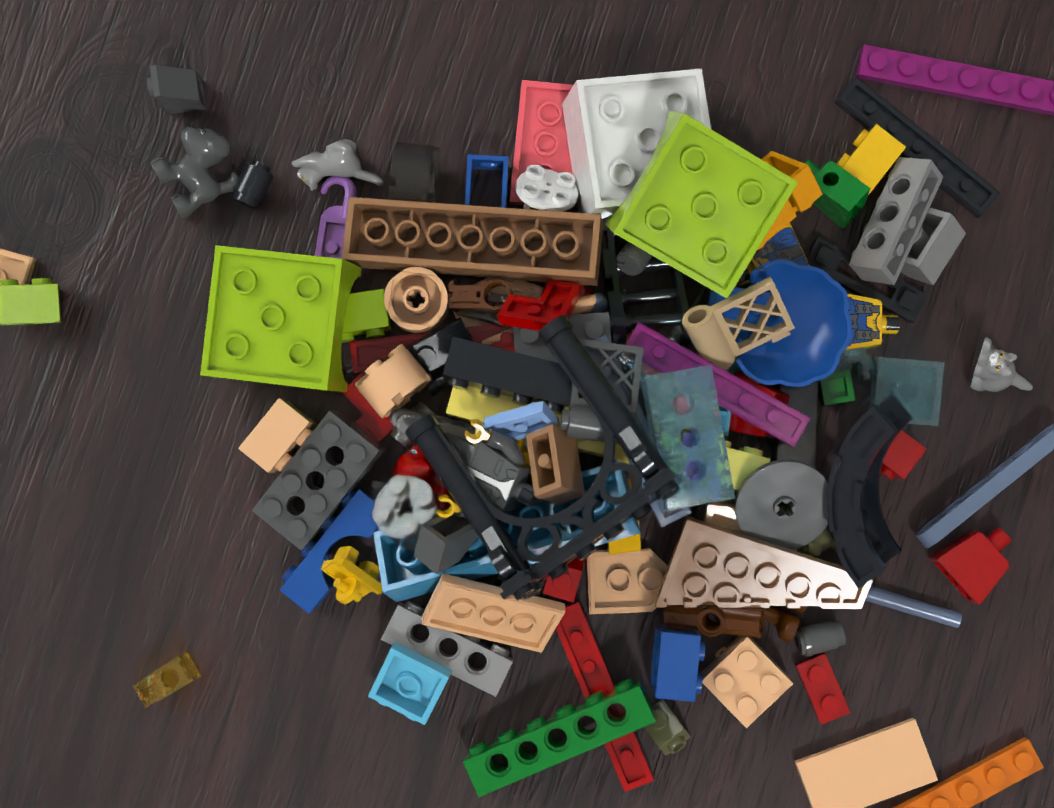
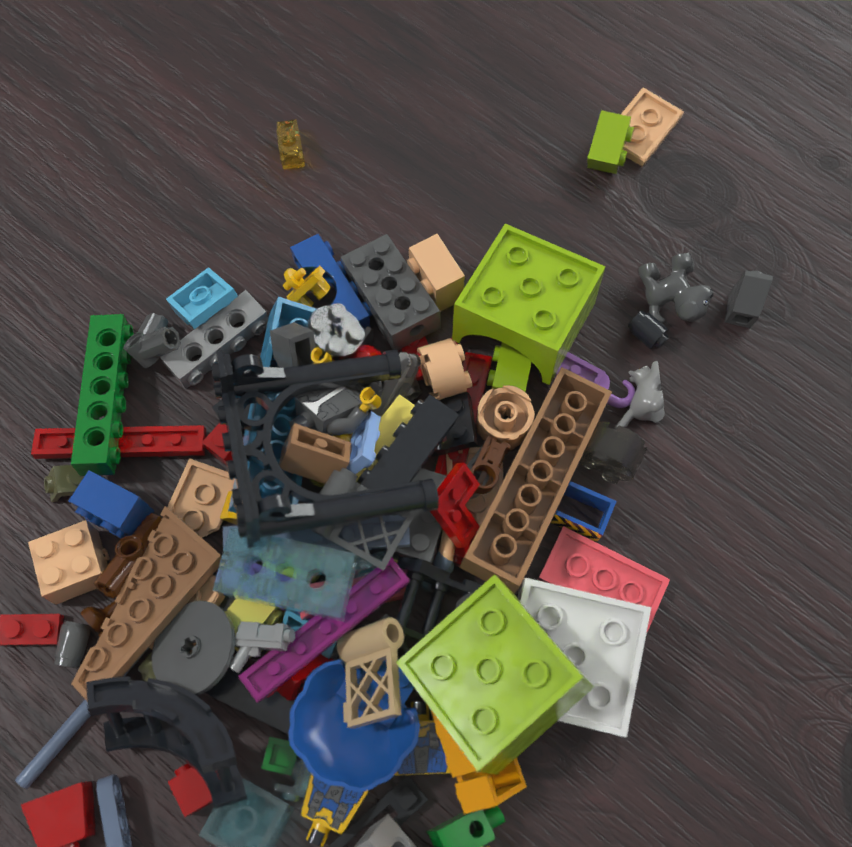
camera: 110 degrees right, 15 degrees down
(481, 612) = (200, 404): light nougat tile -> none
(487, 716) = (152, 340): none -> dark grey piece
(546, 189) = (560, 556): white plate -> none
(751, 444) = (254, 637): none -> light grey piece

